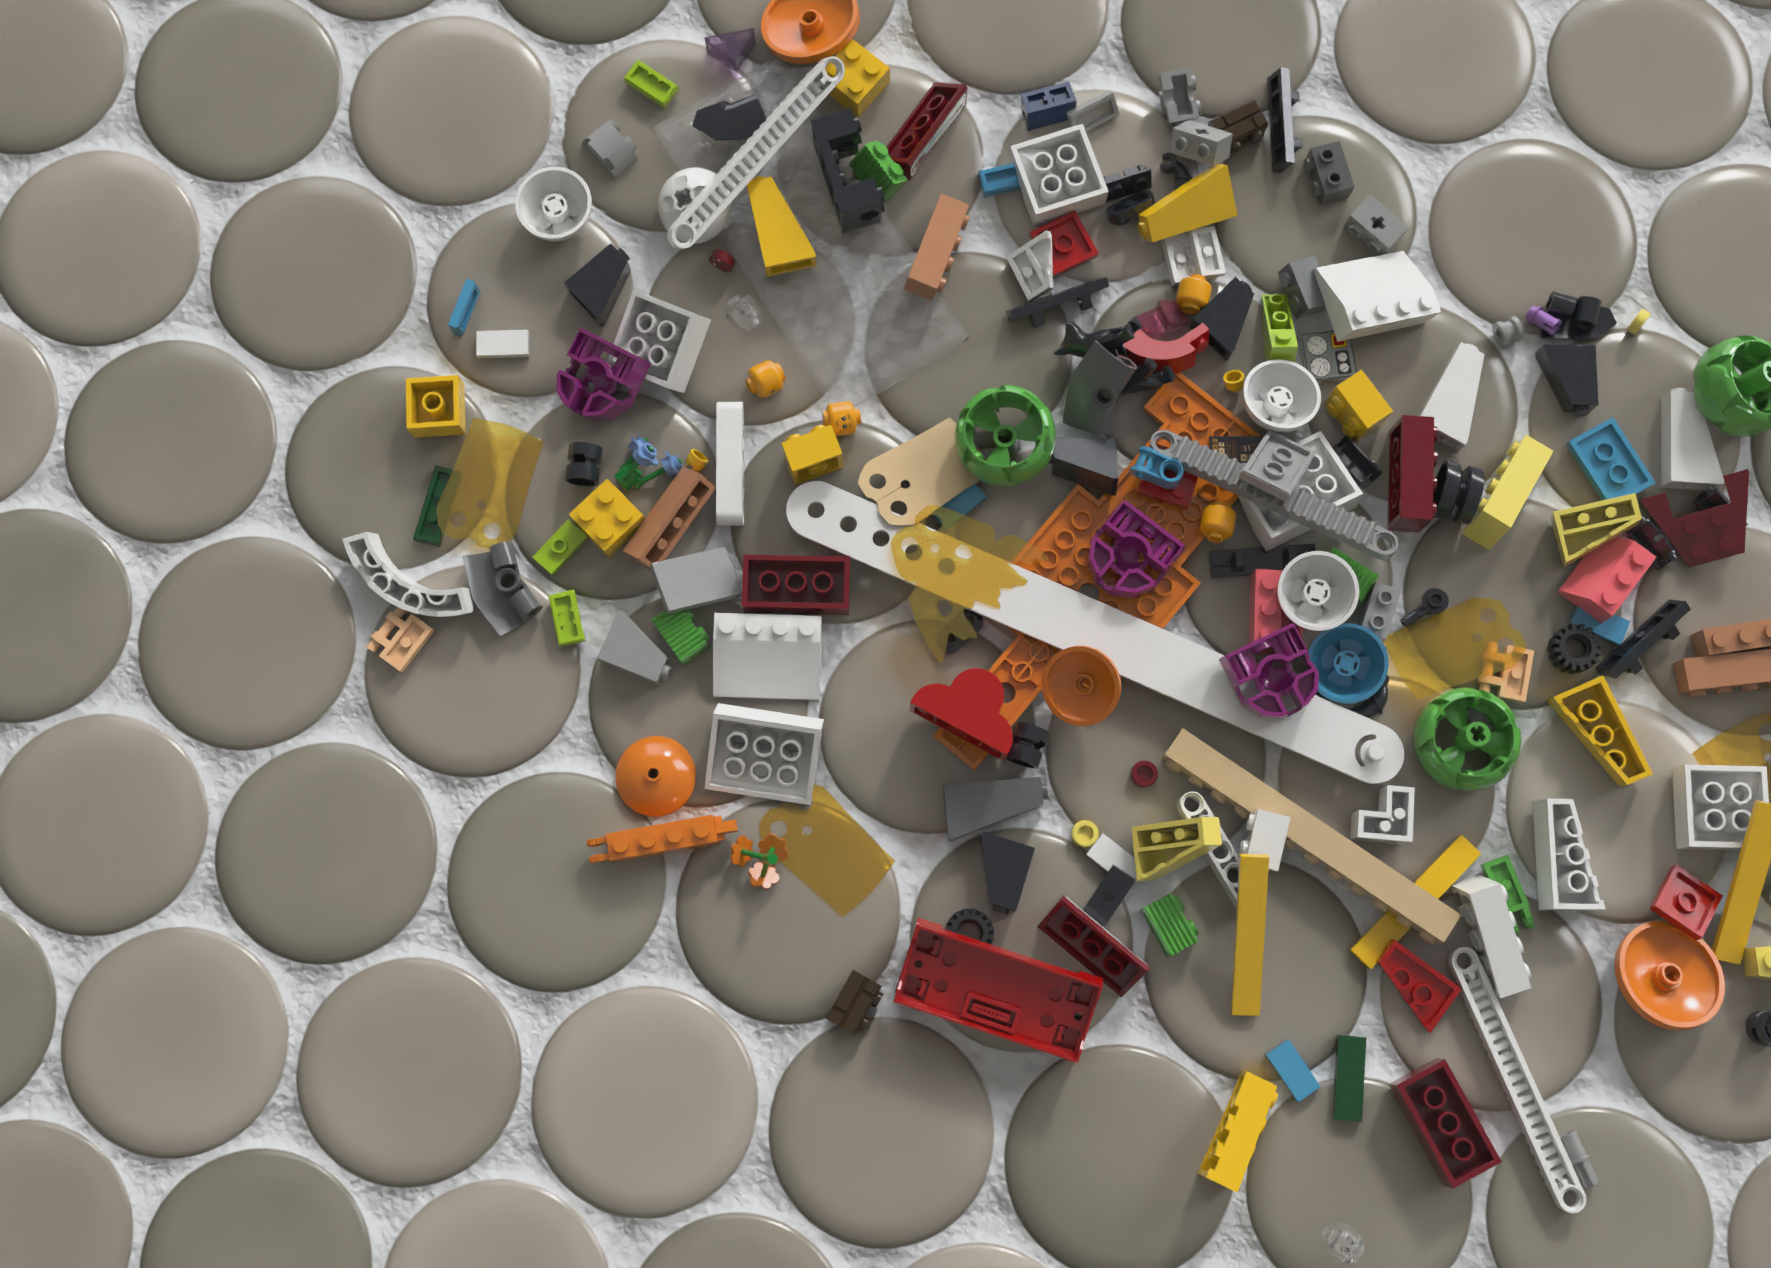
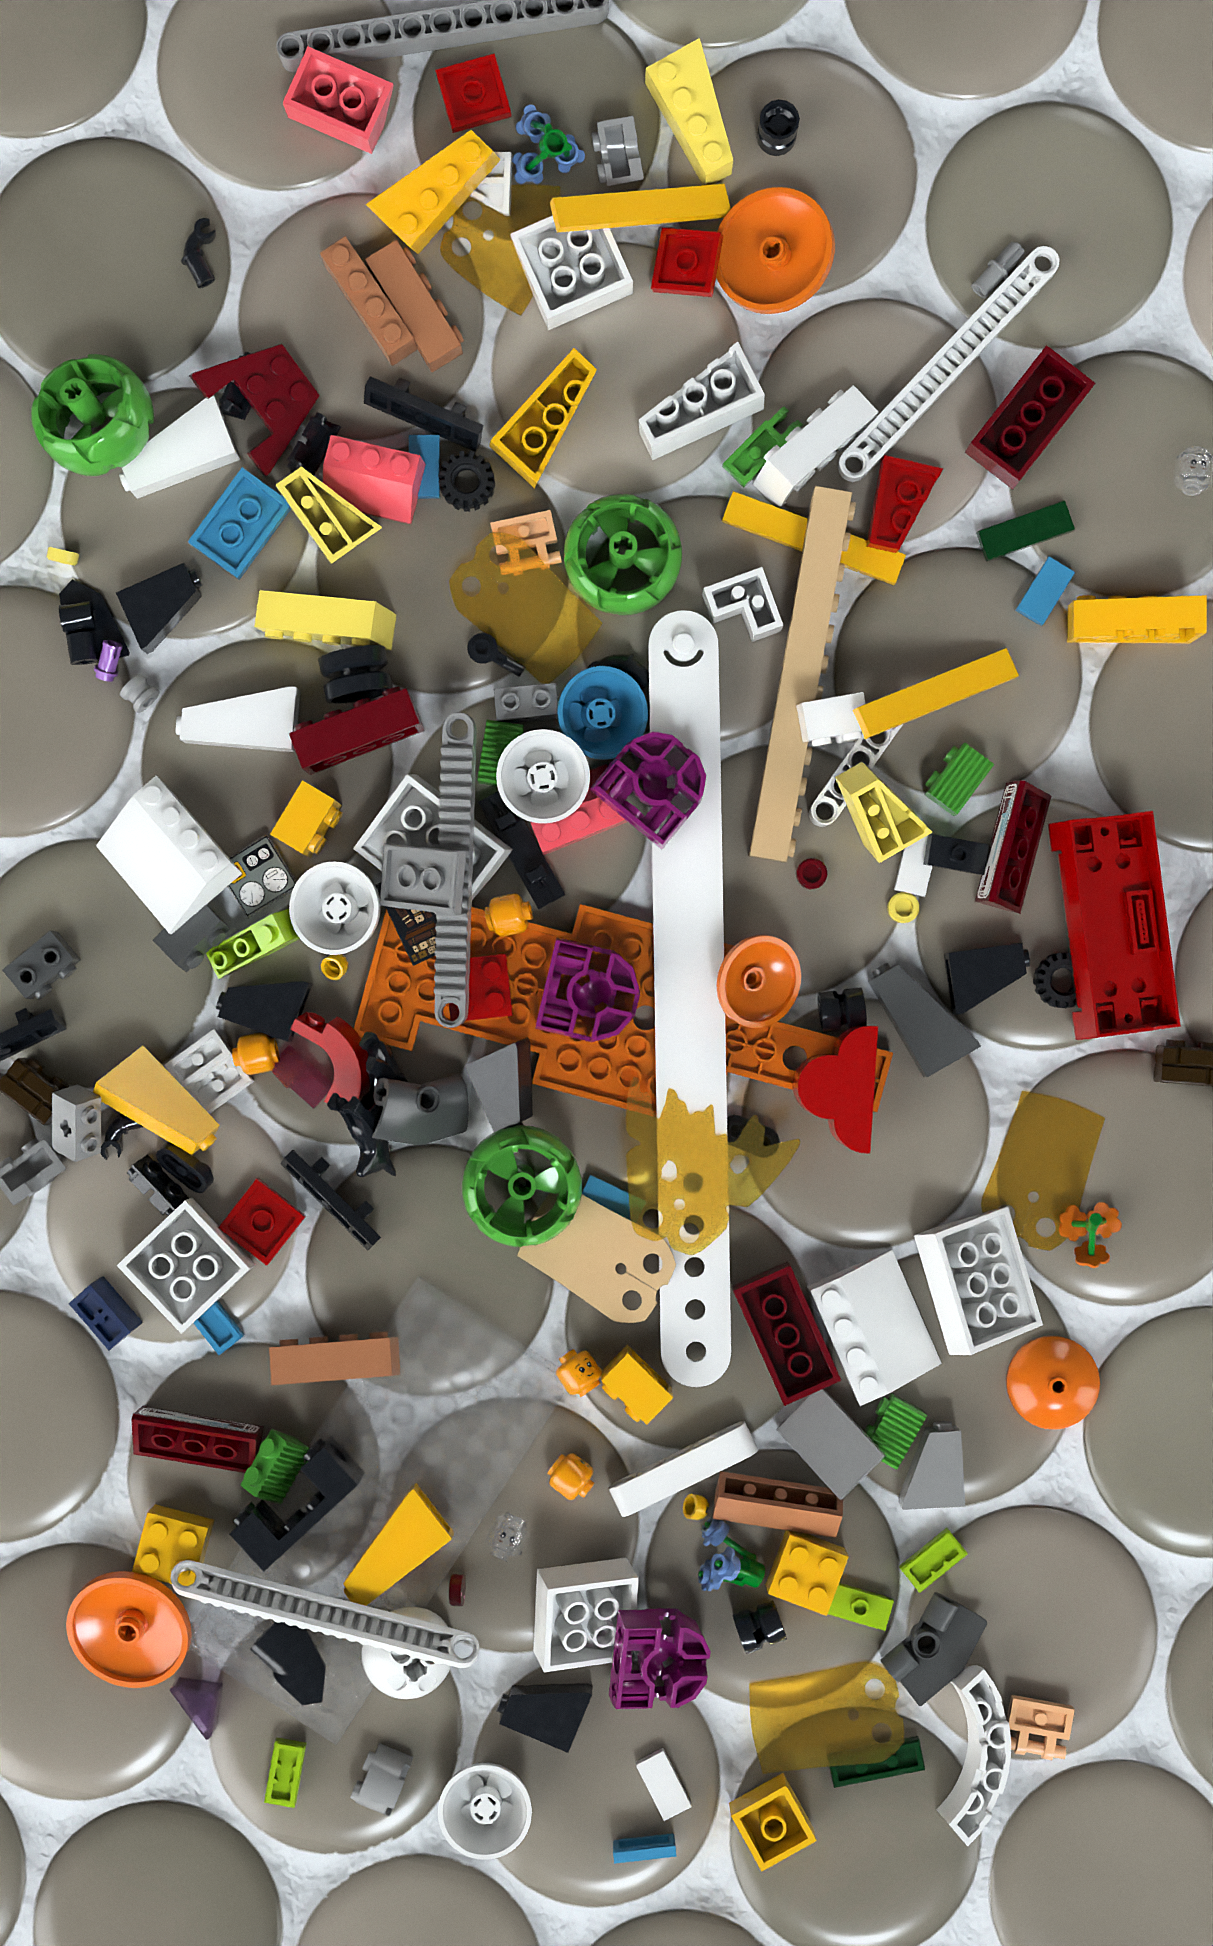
camera: 110 degrees left, 10 degrees up
(662, 838) = (1118, 1343): orange hinge -> none
(1034, 266) = (305, 1242): white wing -> none
(1094, 111) = (91, 1258): light grey tile -> none
(1155, 466) = (483, 1008): dark azure piece -> none
(1364, 469) = (372, 783): black hinge -> none
(1373, 213) = (73, 901): light grey brick -> none

